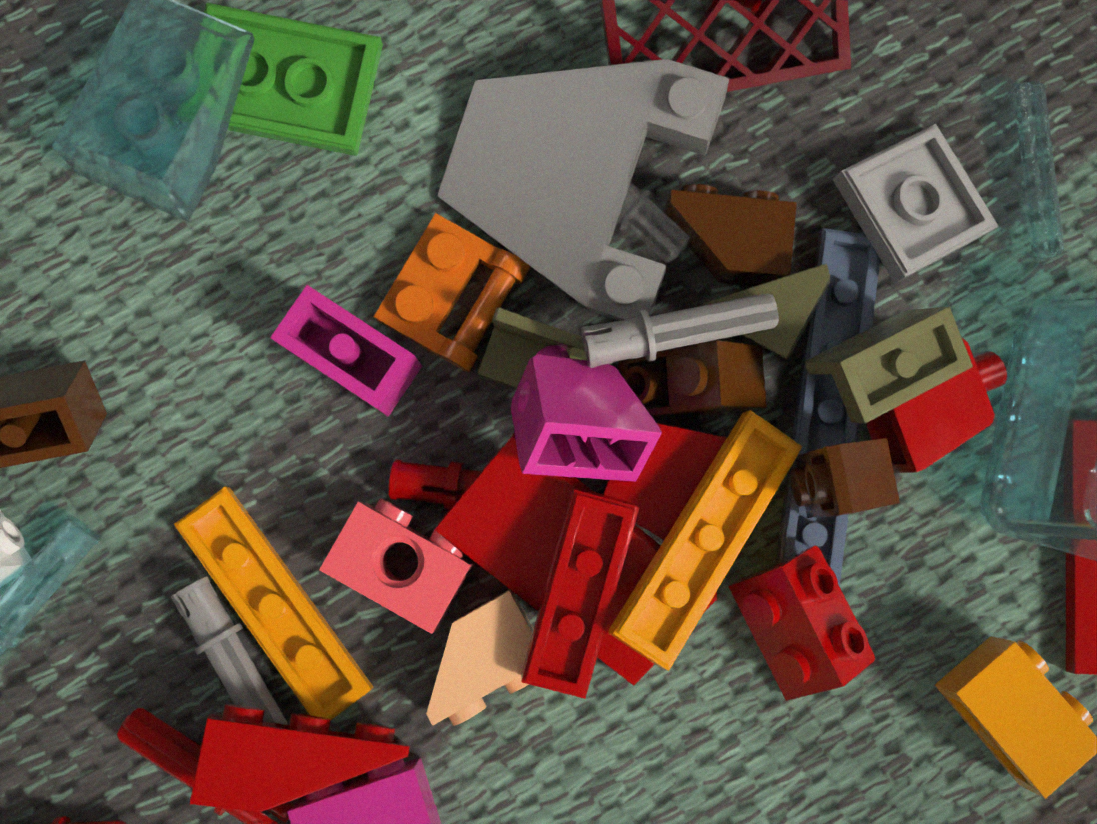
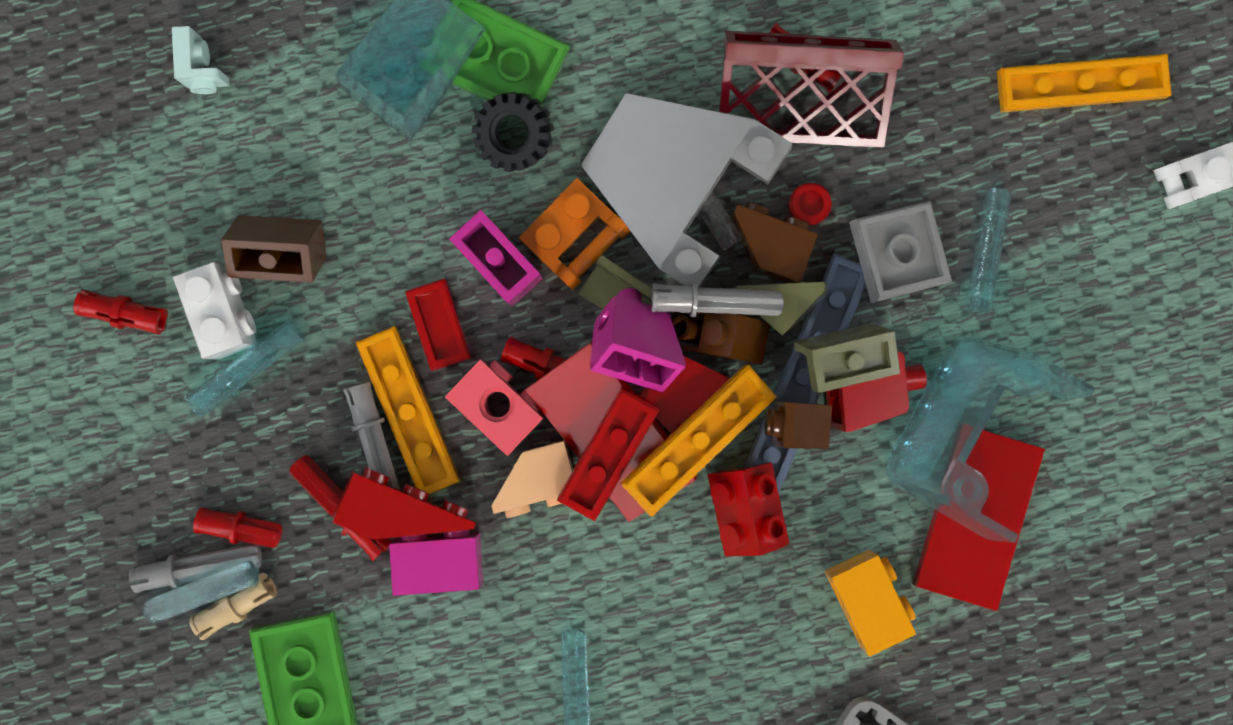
camera: 15 degrees right, 5 degrees up
(288, 469) = (438, 324): none -> red tile
(292, 169) = (489, 140): none -> black tyre
(770, 167) = (810, 203): none -> red tile

